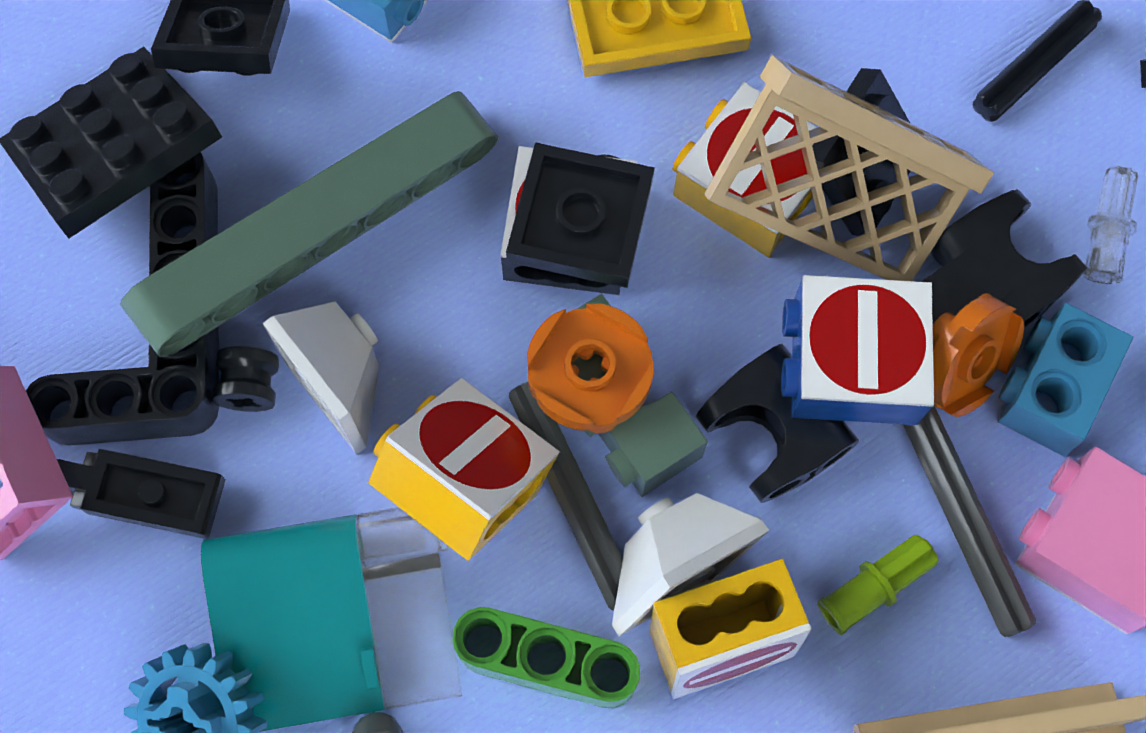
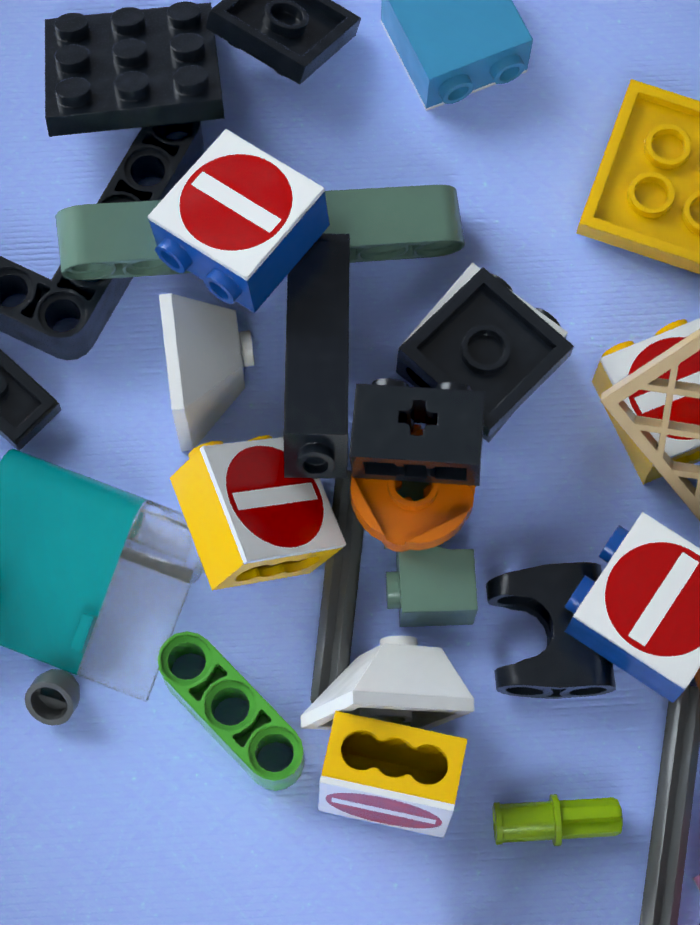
camera: 30 degrees right, 0 degrees up
(245, 379) = (126, 335): black wheel -> none
(298, 216) = (239, 221): none -> piece
(438, 300) = (317, 362): none -> black slope
(551, 340) = (444, 453): none -> black brick

